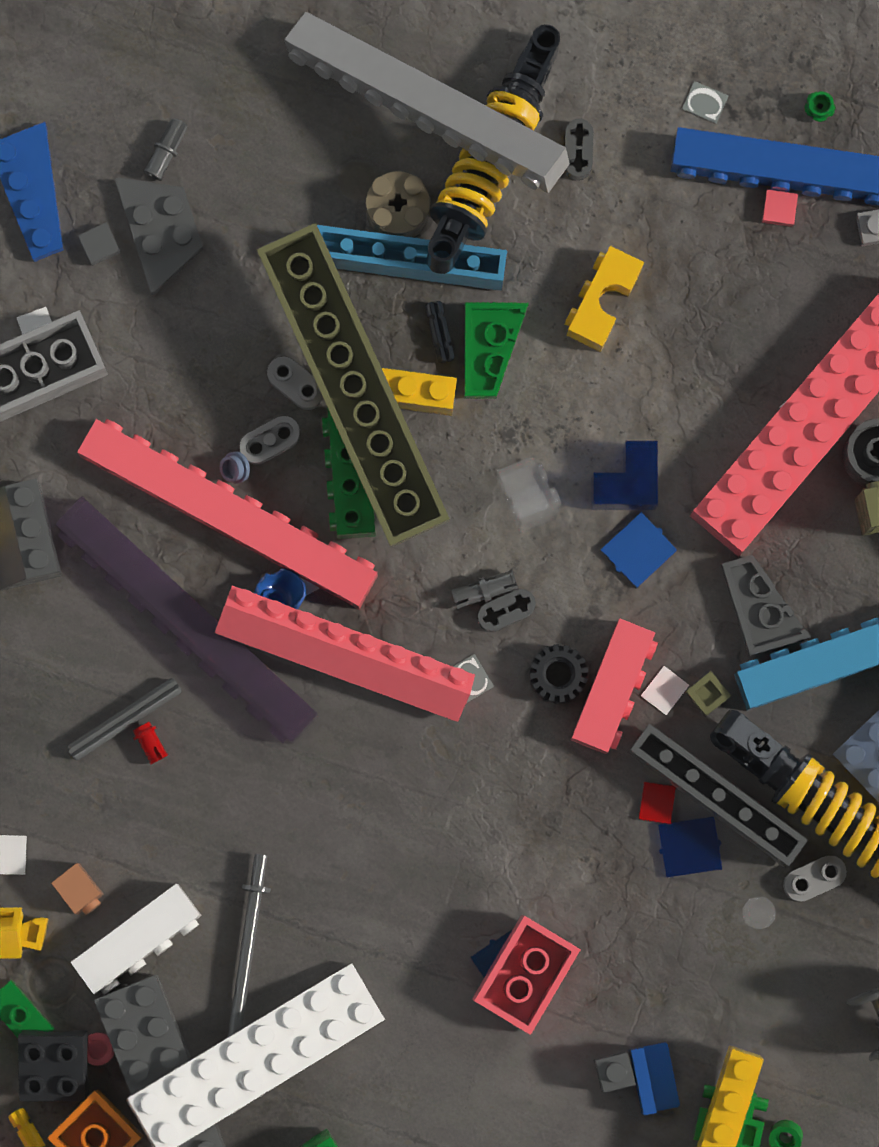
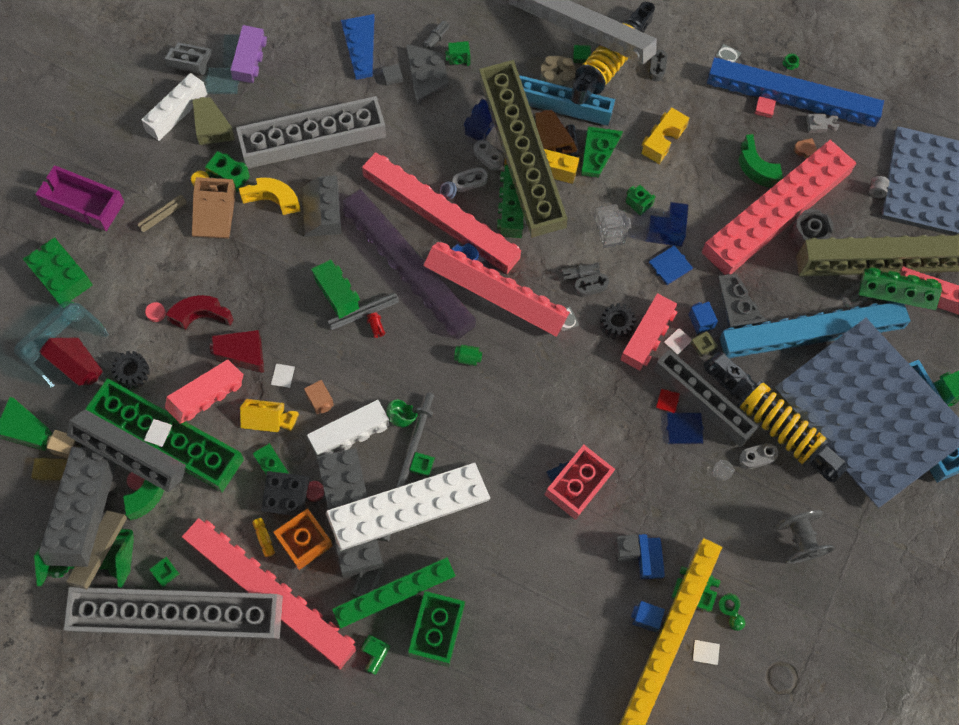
camera: 10 degrees right, 15 degrees down
(72, 690) = (336, 288): none -> green brick
(212, 185) = (458, 53): none -> green brick
(217, 898) = (400, 413): none -> green hair
(266, 979) = (422, 464): none -> green plate
(270, 326) = (480, 122): none -> clear blue brick
(313, 775) = (468, 355): none -> green brick
(403, 331) = (553, 133): none -> reddish brown slope
(435, 149) = (581, 53): none -> green tile
(576, 444) = (639, 199): none -> green brick
(701, 644) = (702, 317): none -> blue brick
(770, 340) = (755, 168): none -> green arch
(859, 283) = (805, 148): none -> nougat tile

